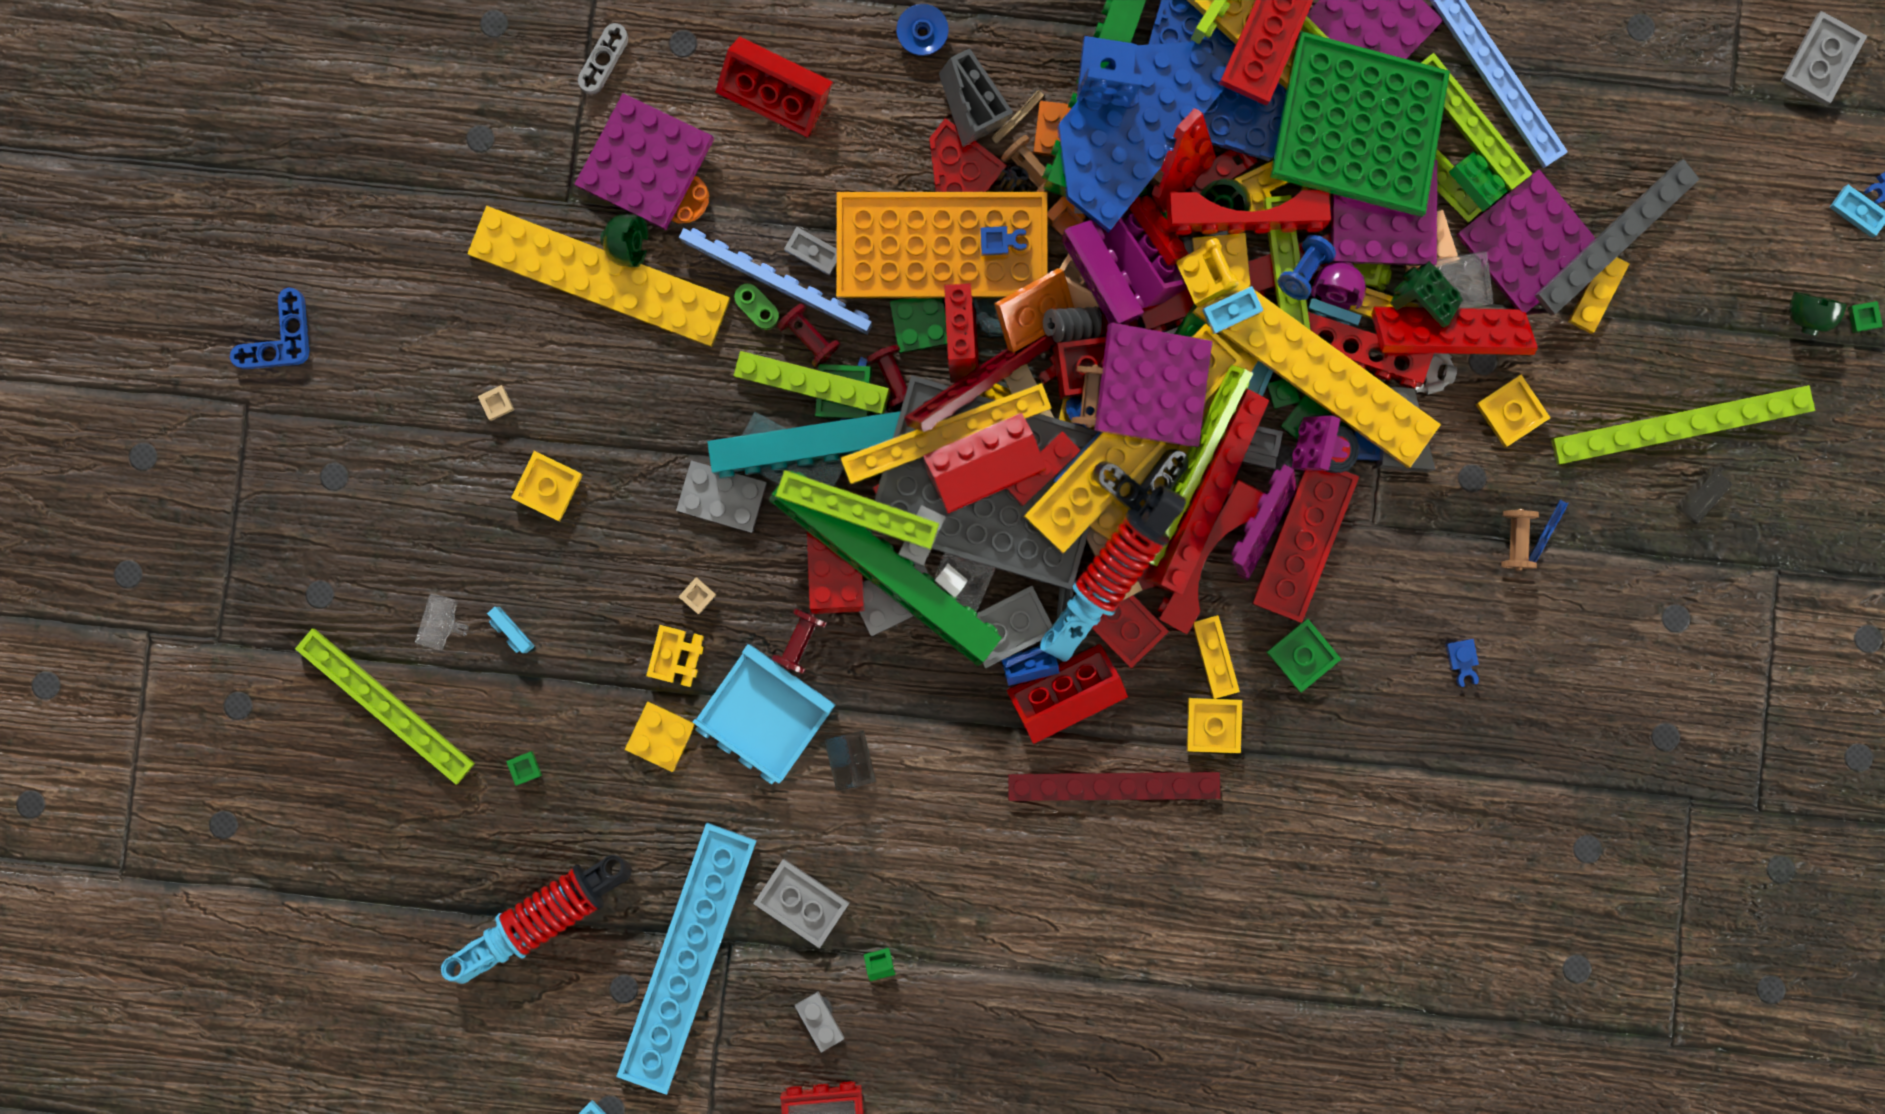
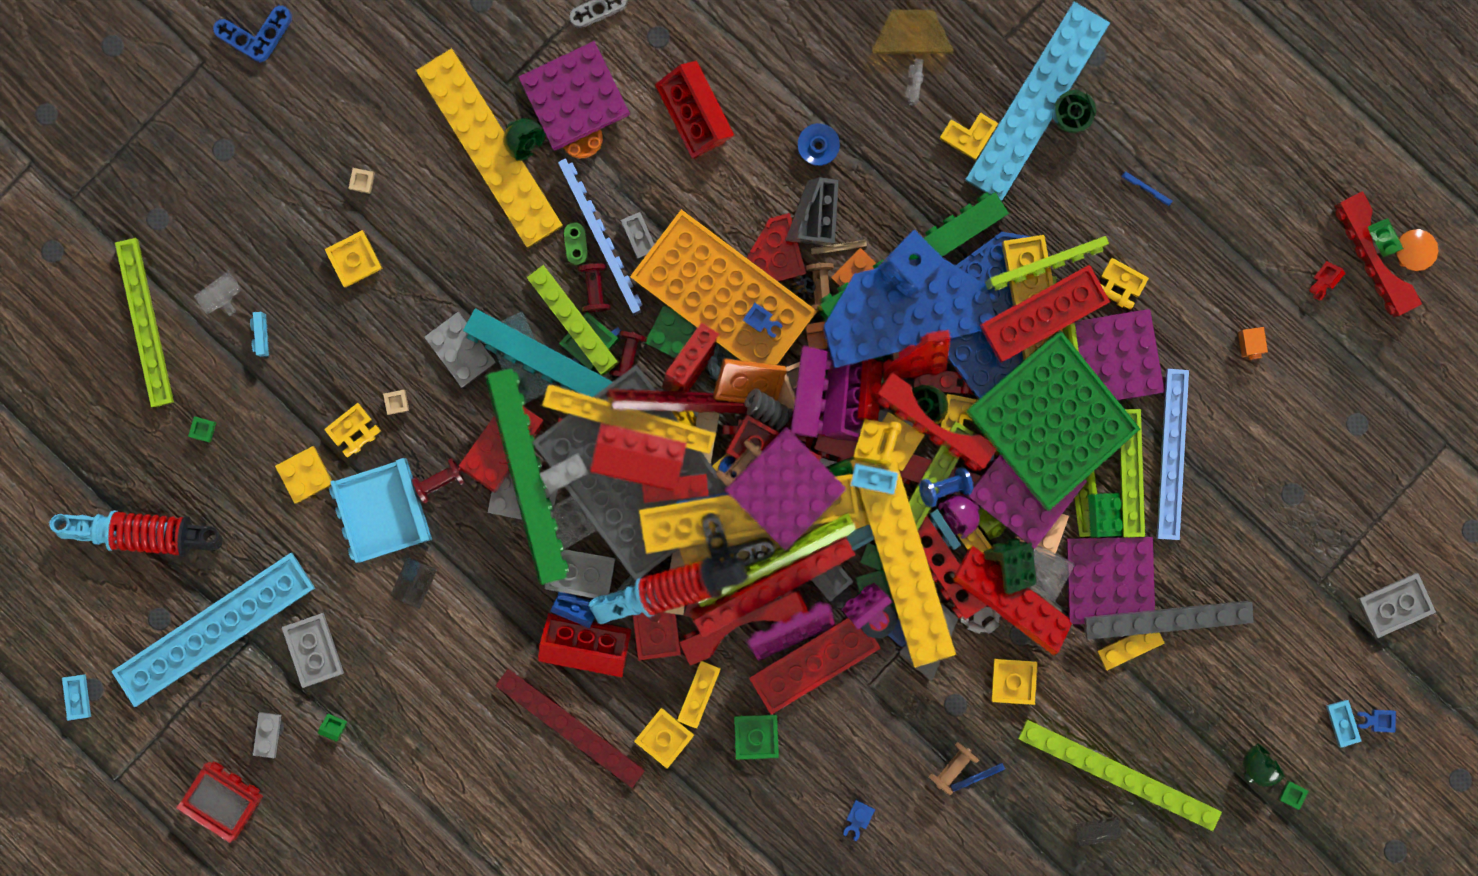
camera: 40 degrees right, 0 degrees up
(857, 510) = (533, 426): lime plate -> none
(951, 580) = (562, 516): white tile -> none

